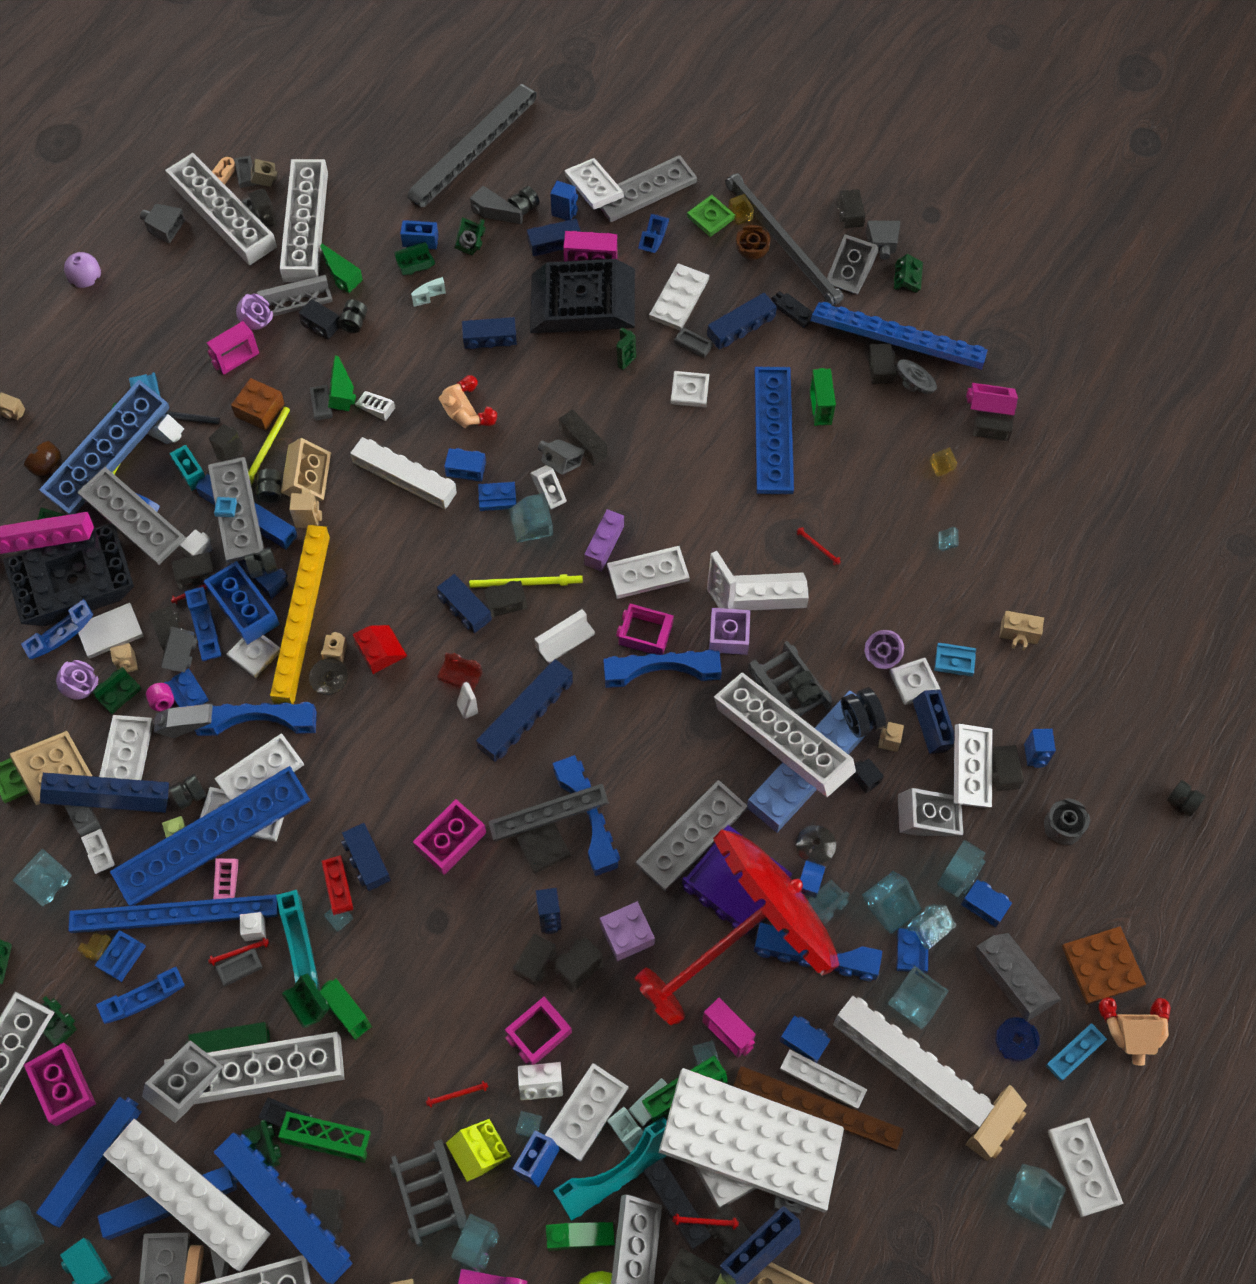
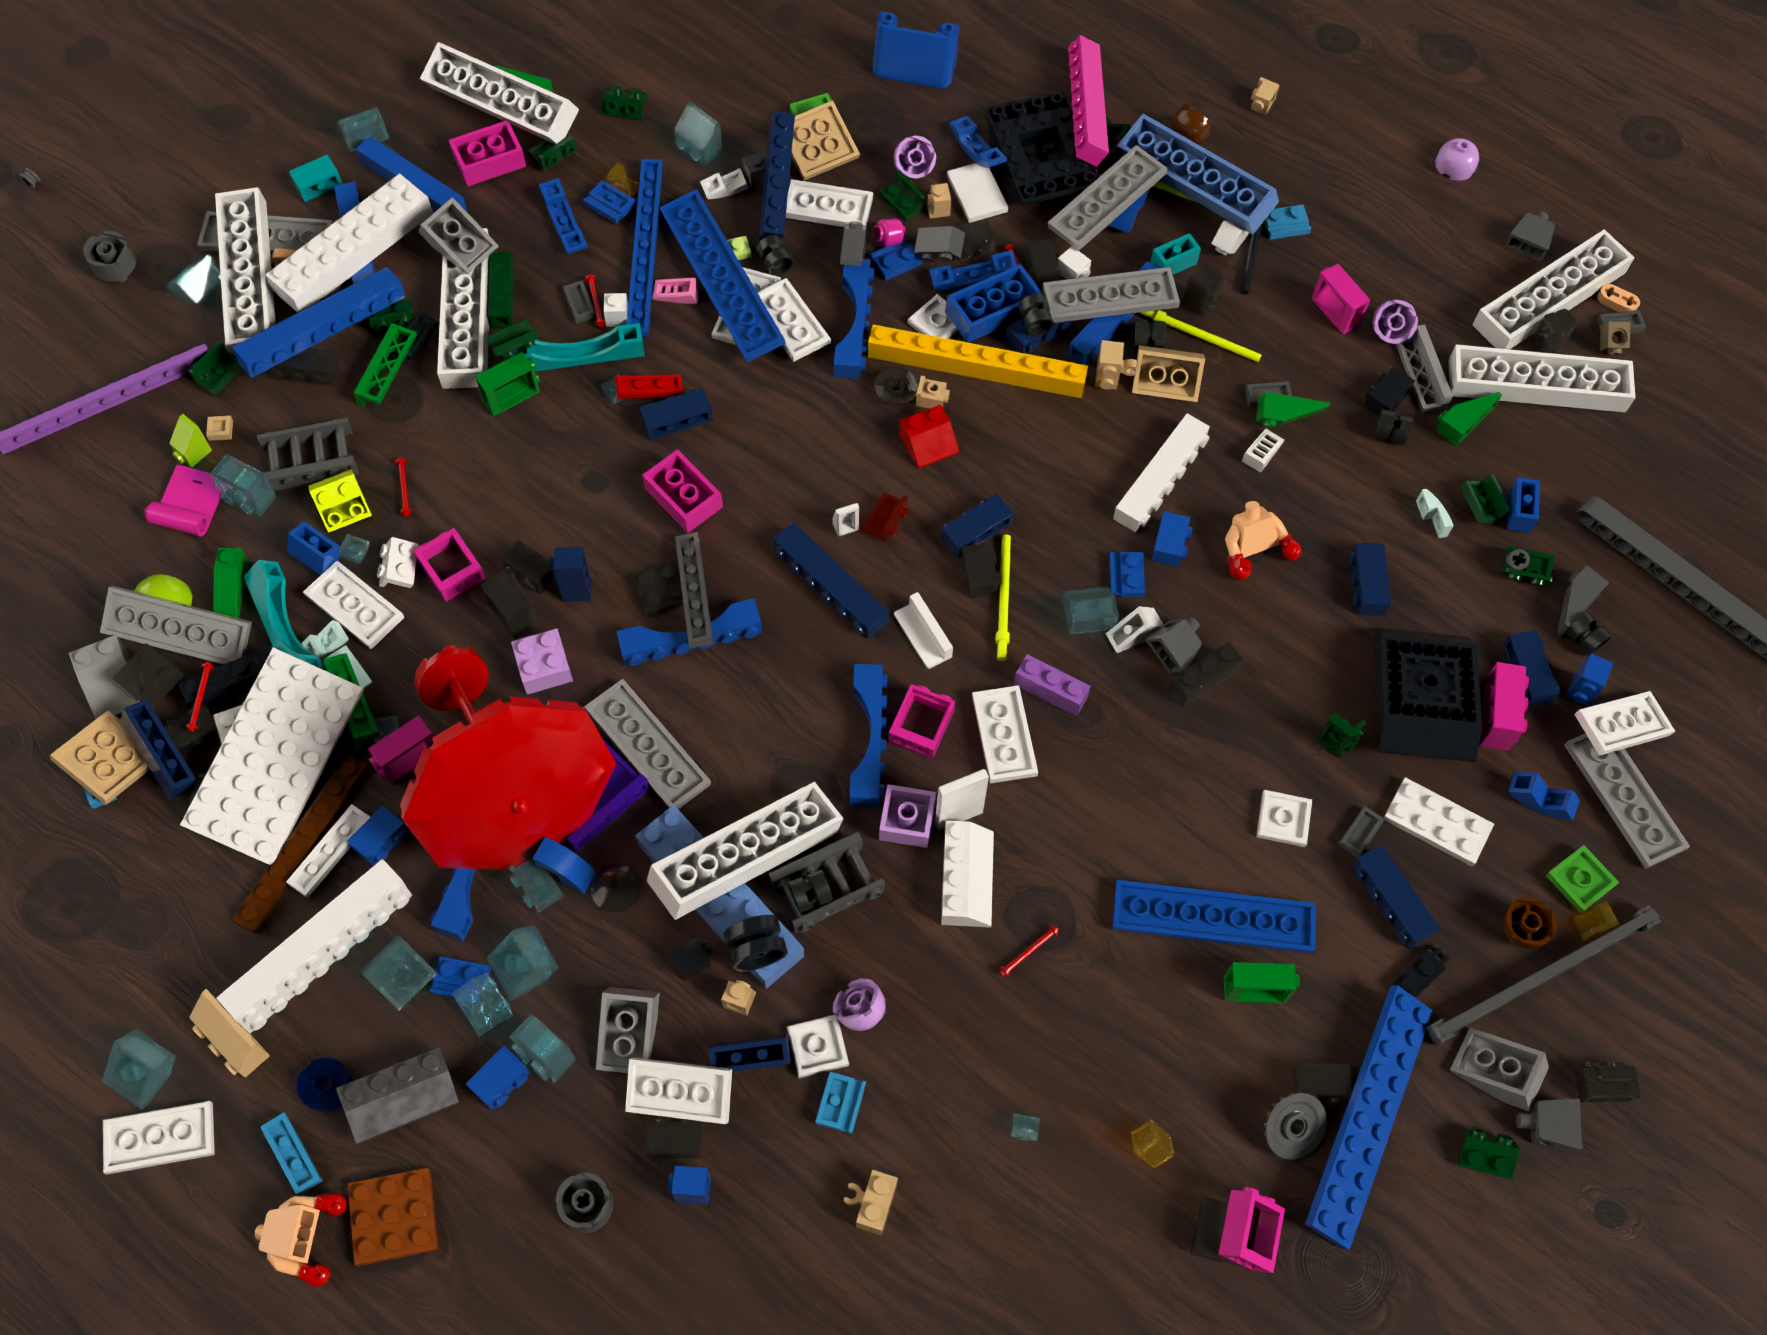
camera: 95 degrees right, 0 degrees up
(225, 507) = (1110, 281): dark azure tile -> none
(258, 404) = (1263, 326): dark orange brick -> none

